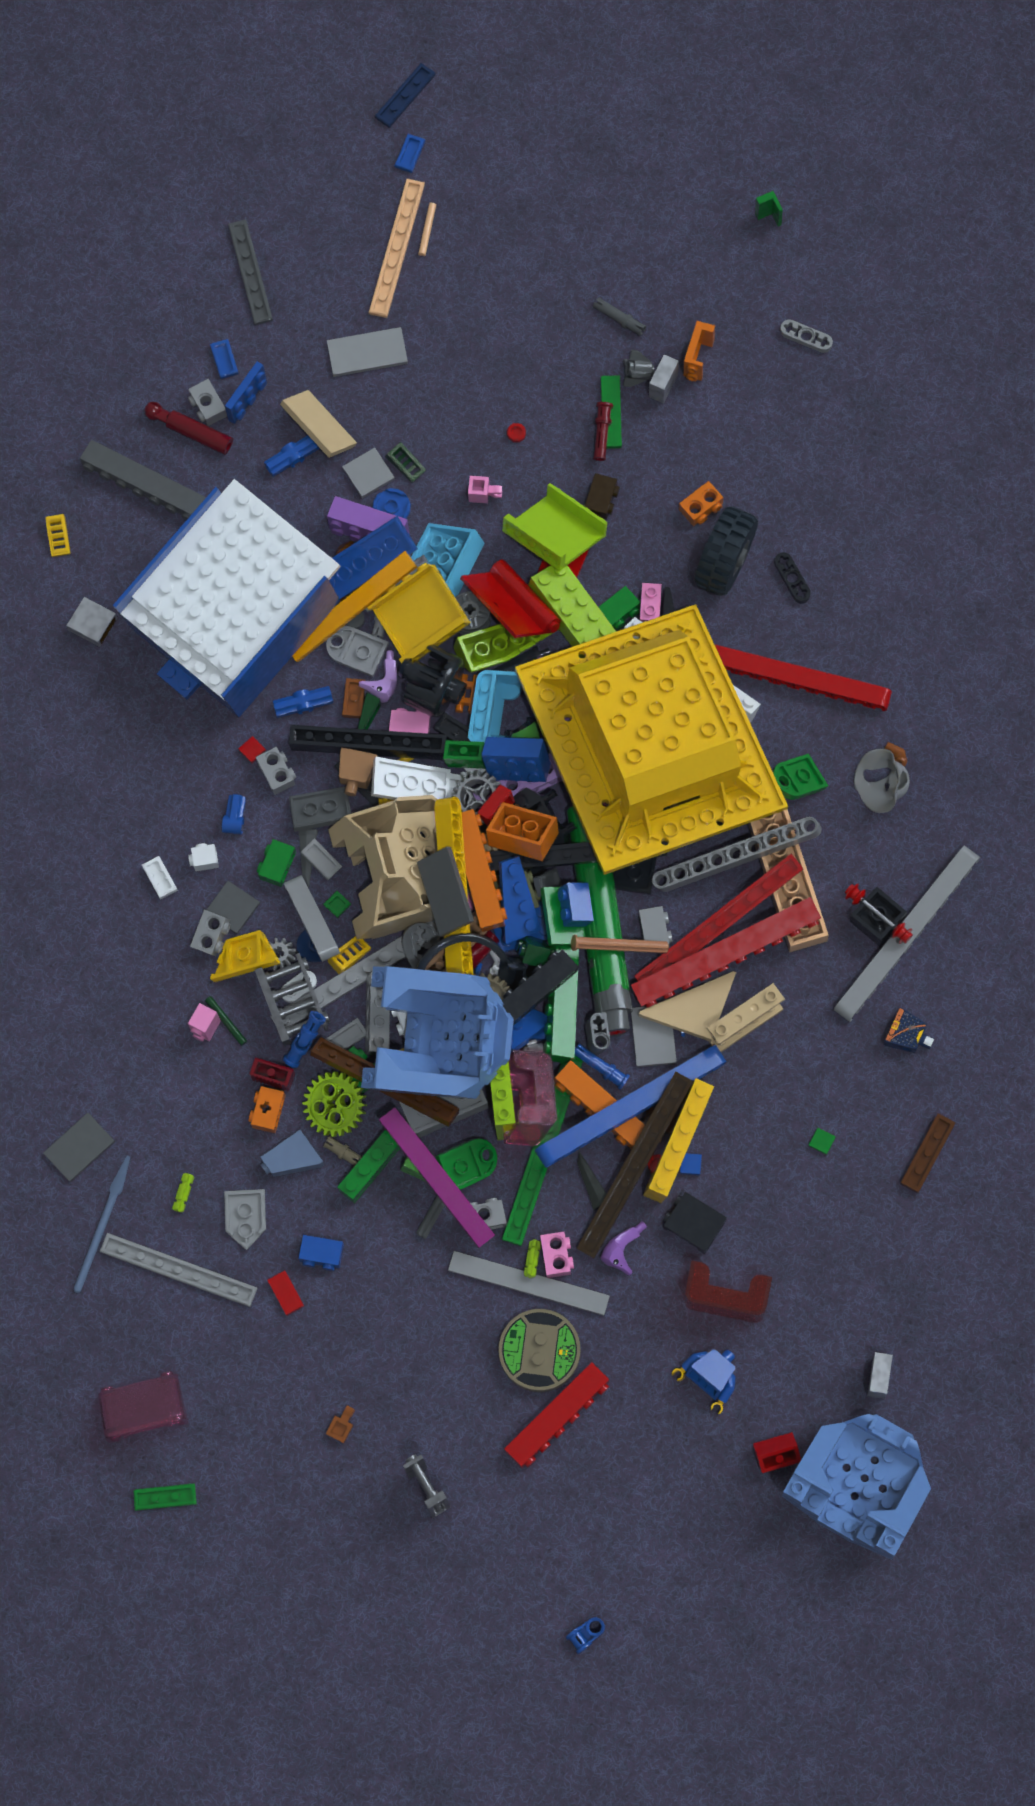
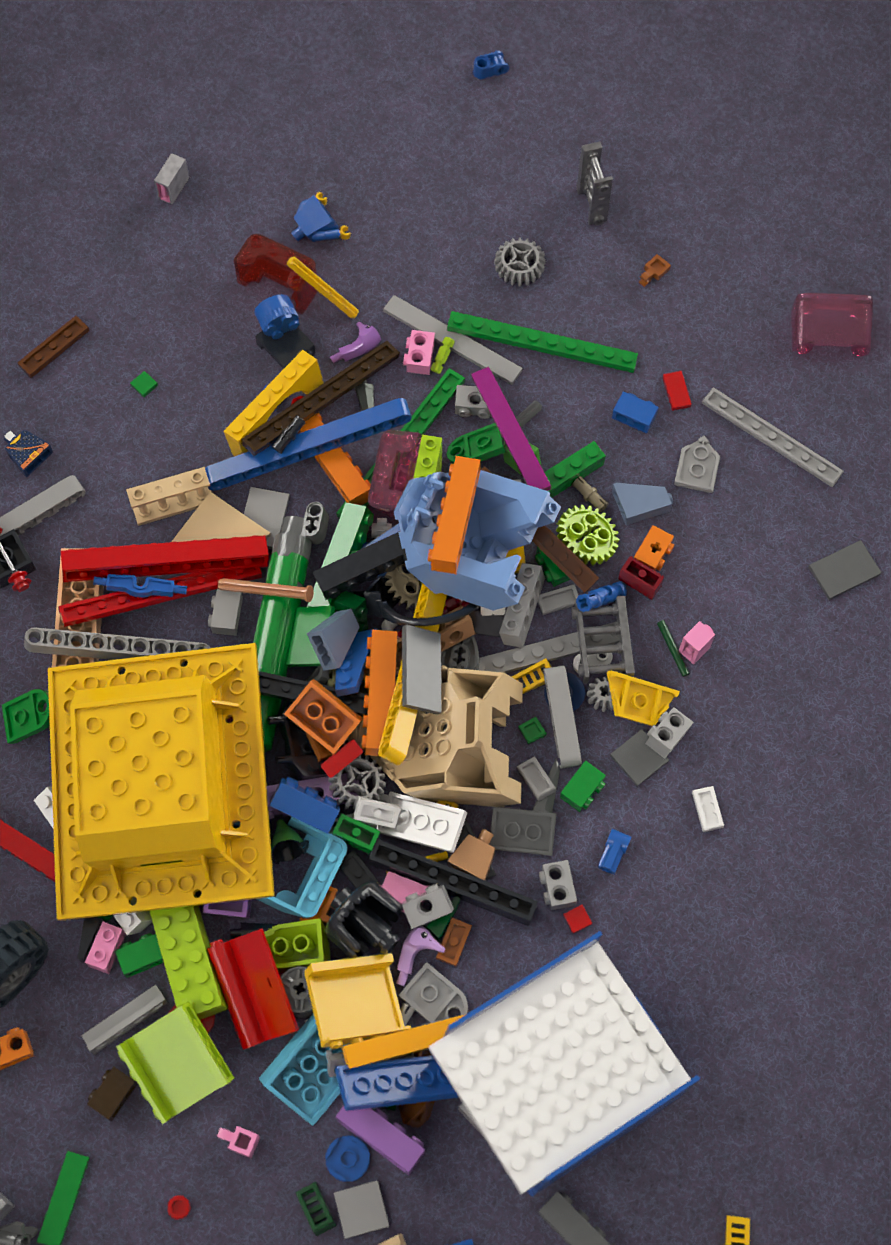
camera: 170 degrees left, 5 degrees down
(91, 621) = (720, 1119): flat silver piece -> none
(115, 1190) = (817, 522): sand blue piece -> none
(165, 1497) = (825, 258): green tile -> none
(183, 1192) = (752, 501): lime axle -> none
(203, 857) = (657, 814): white brick -> none
(303, 701) = (509, 953): blue piece -> none
(382, 709) = (418, 915): none -> light grey brick
(436, 1305) = (542, 341): none -> green plate
(451, 774) = (377, 812): none -> white plate
(453, 1028) = (455, 515): none -> orange brick
(473, 1406) = (515, 269): none -> light grey gear
(538, 912) = (333, 638): none -> sand blue slope
(539, 1350) = (460, 280): piece -> none
(557, 1415) = (461, 226): red brick -> none
(575, 904) = (293, 640): brick -> none
(603, 422) = (77, 1182): dark red pin -> none
(608, 1071) = (317, 493): blue pin -> none
(613, 556) = (124, 1019): none -> light grey fence
(654, 1090) = (288, 434): none -> black pin
(672, 1278) = (321, 286): none -> yellow axle
(707, 1232) = (277, 315): none -> blue piece
(727, 919) = (128, 584): none -> blue piece
(777, 1452) = (283, 148): red brick -> none
(825, 1490) = (215, 74): medium blue piece -> none

